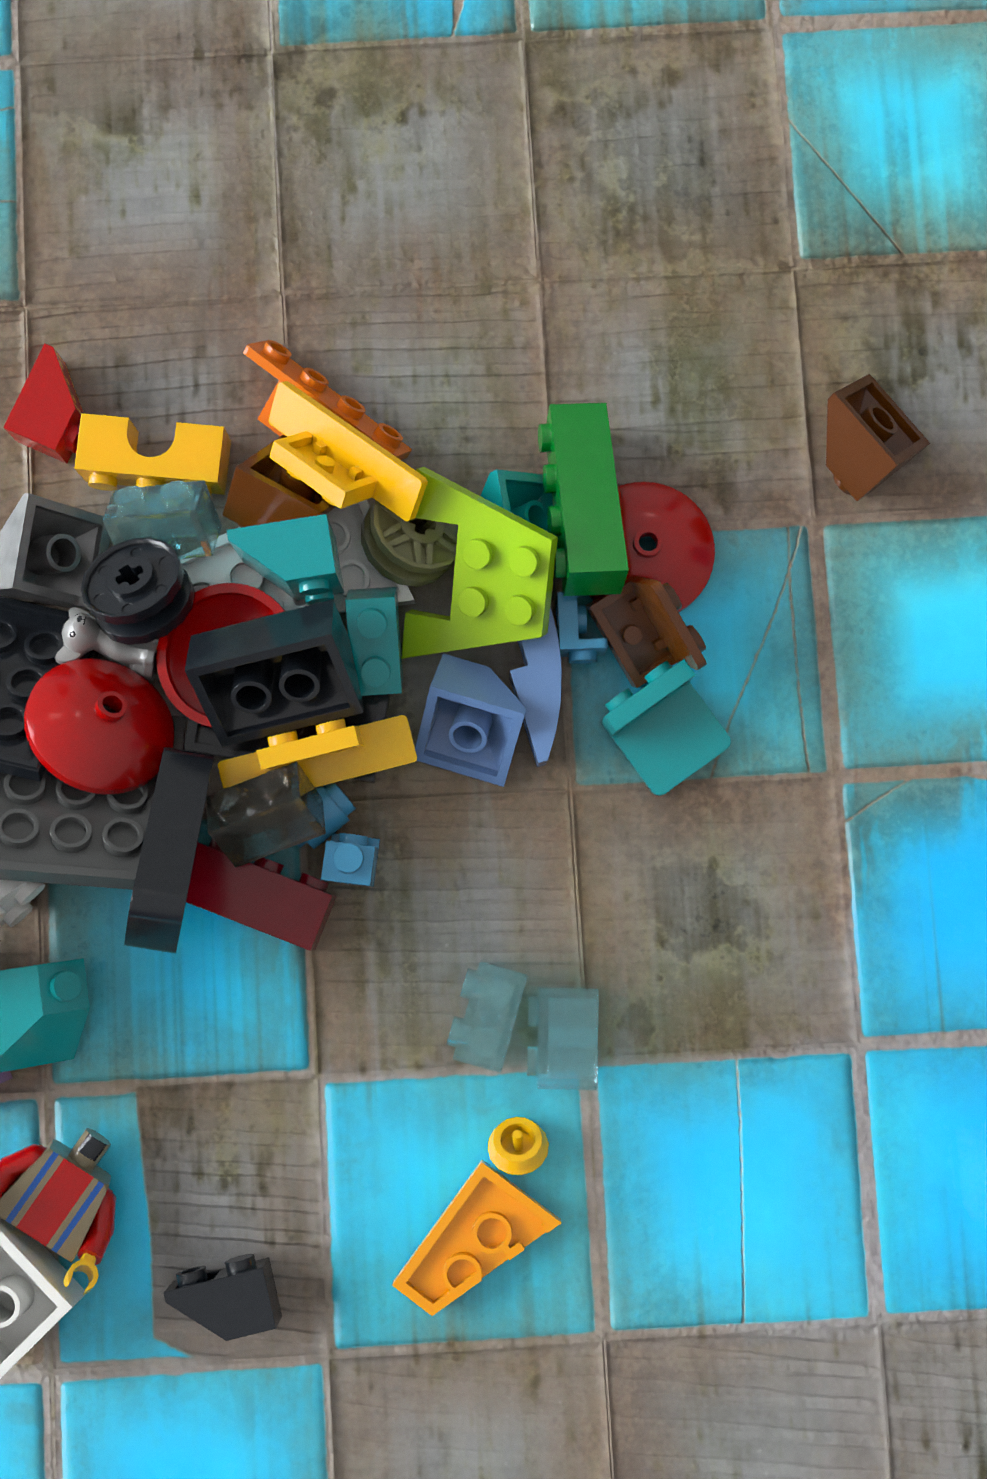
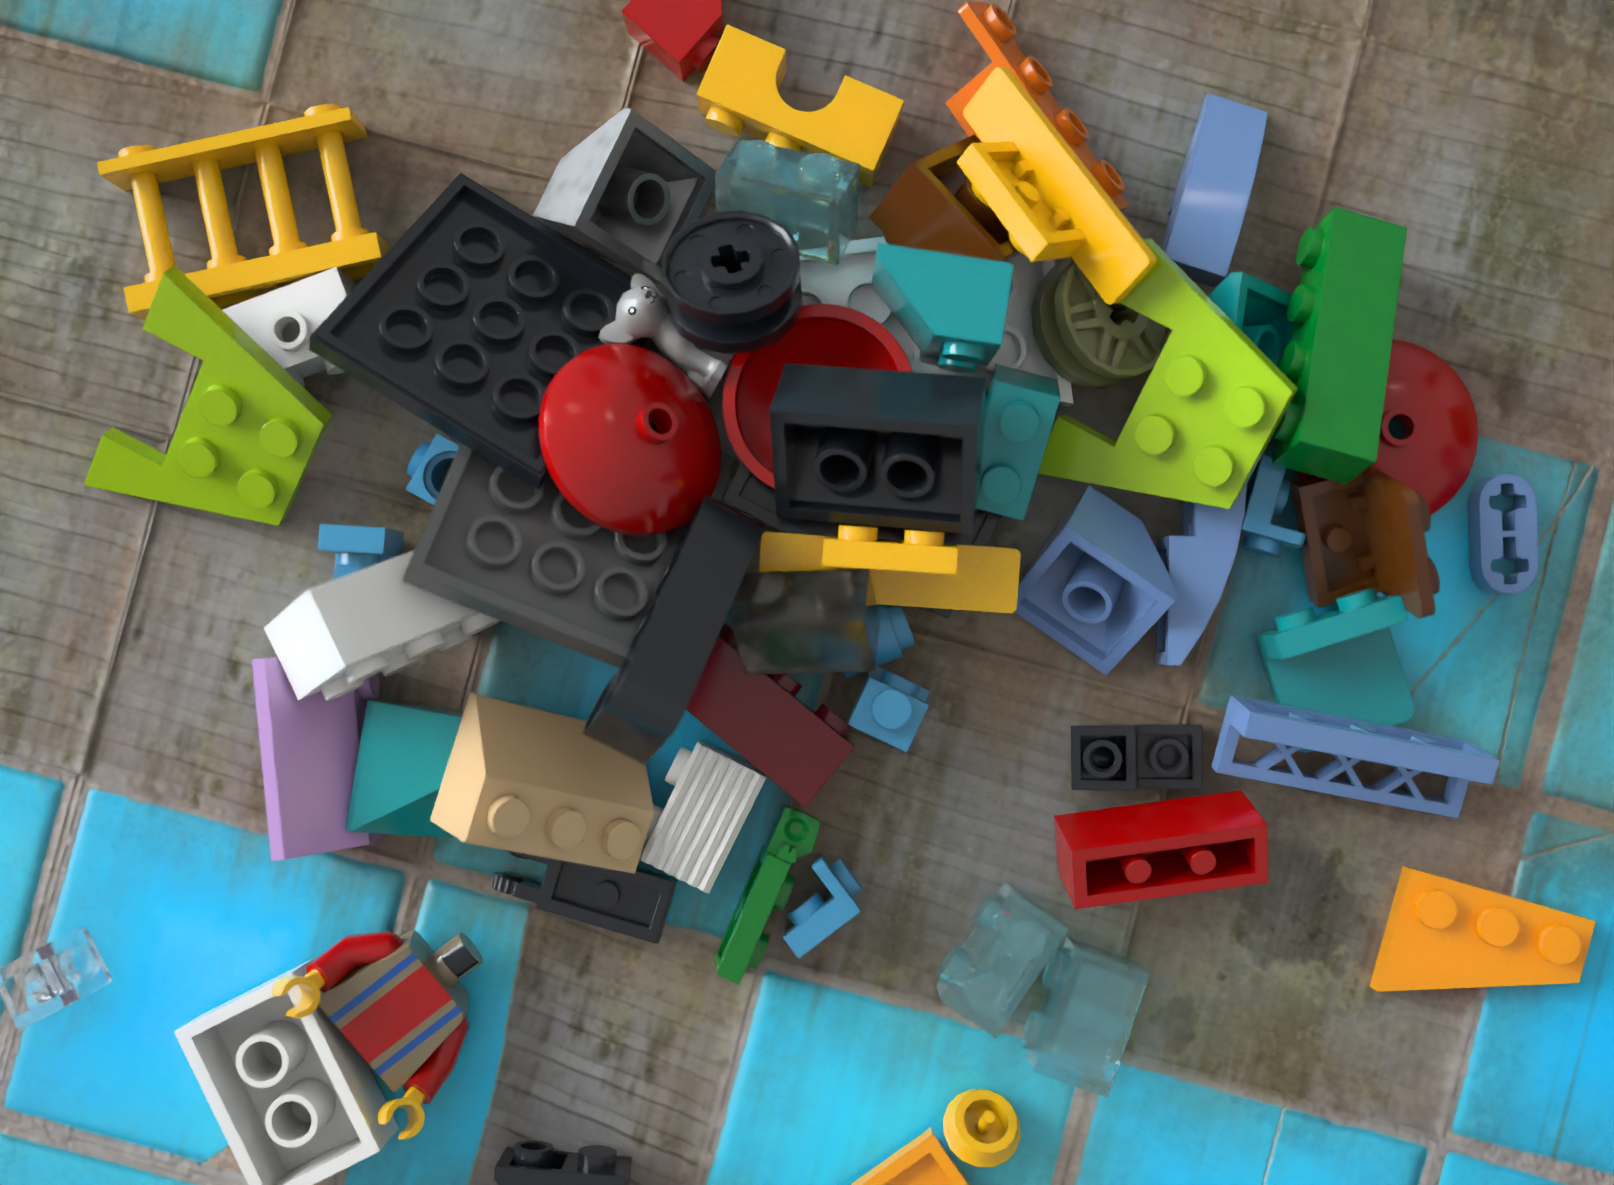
camera: 25 degrees right, 5 degrees up
(113, 996) = (542, 788): none -> tan slope
(176, 1064) = (596, 895): none -> black hinge
(238, 982) = (702, 814): none -> white brick
(305, 1021) = (765, 890): none -> green hinge
(345, 1029) = (818, 917): none -> dark azure bracket
(465, 419) = (1214, 189): none -> medium blue slope
(543, 837) = (1136, 756): none -> black slope
(578, 897) = (1161, 849): none -> red brick
(695, 773) = (1350, 742): none -> medium blue fence
(762, 590) = (1511, 534): none -> medium blue beam
(829, 888) = (1474, 937): none -> light orange wing

